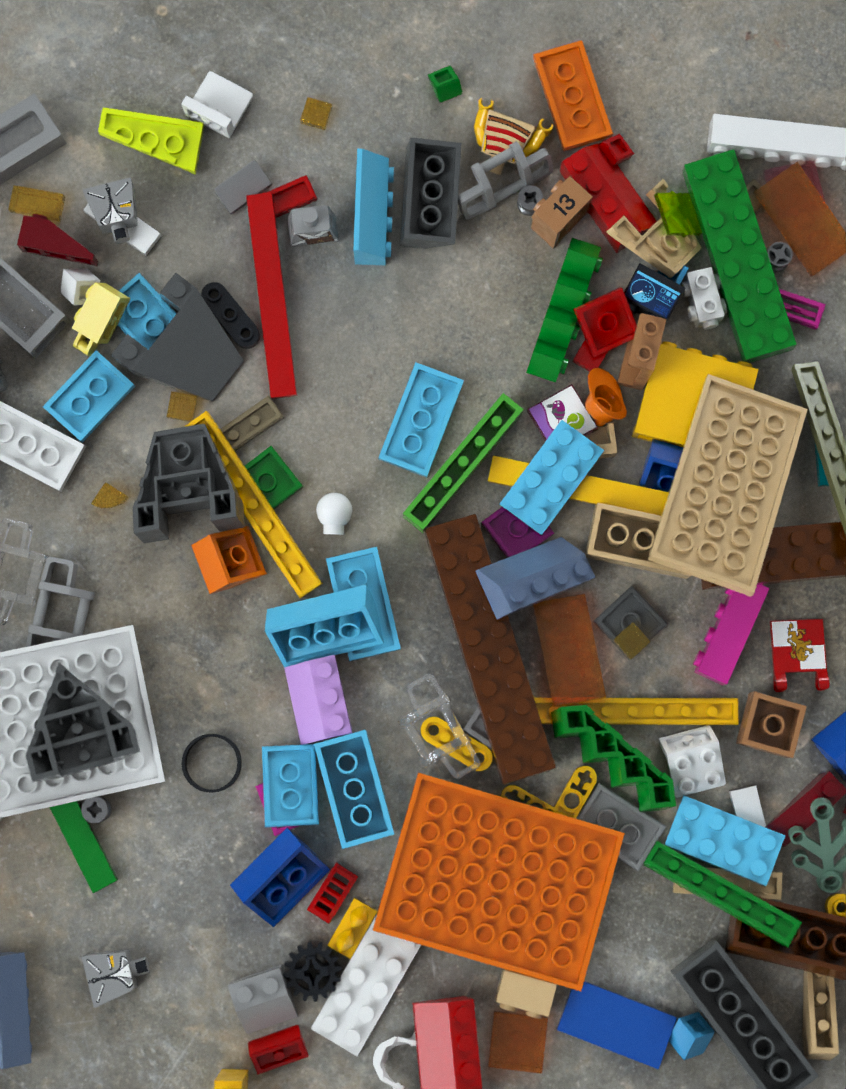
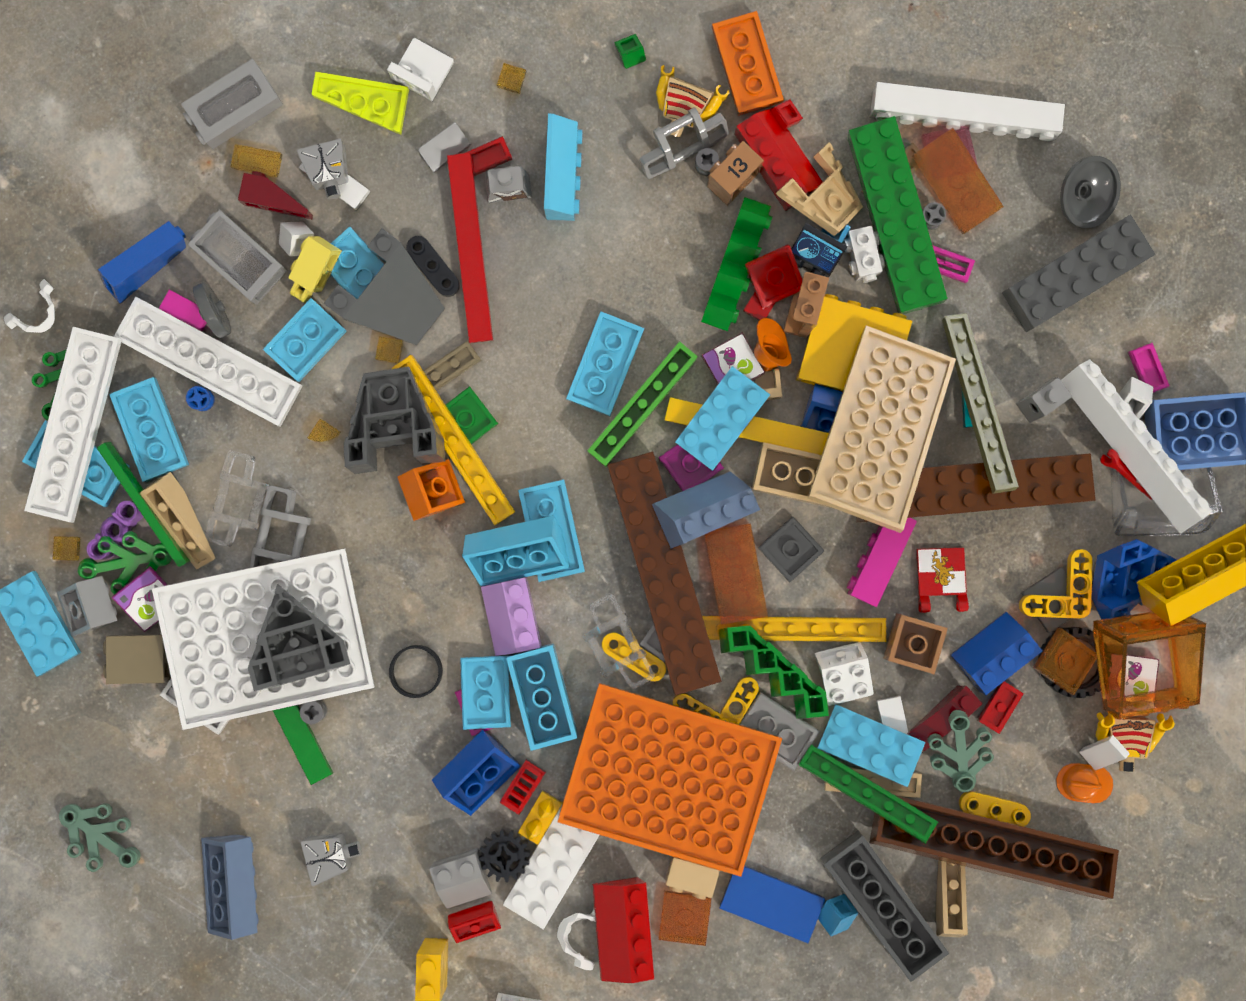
camera: 10 degrees right, 5 degrees up
(334, 512) = (525, 448): white piece -> none
(430, 193) = (615, 155): dark grey slope -> none
(631, 640) = (792, 566): clear yellow tile -> none
(677, 214) = (842, 175): clear neon green piece -> none

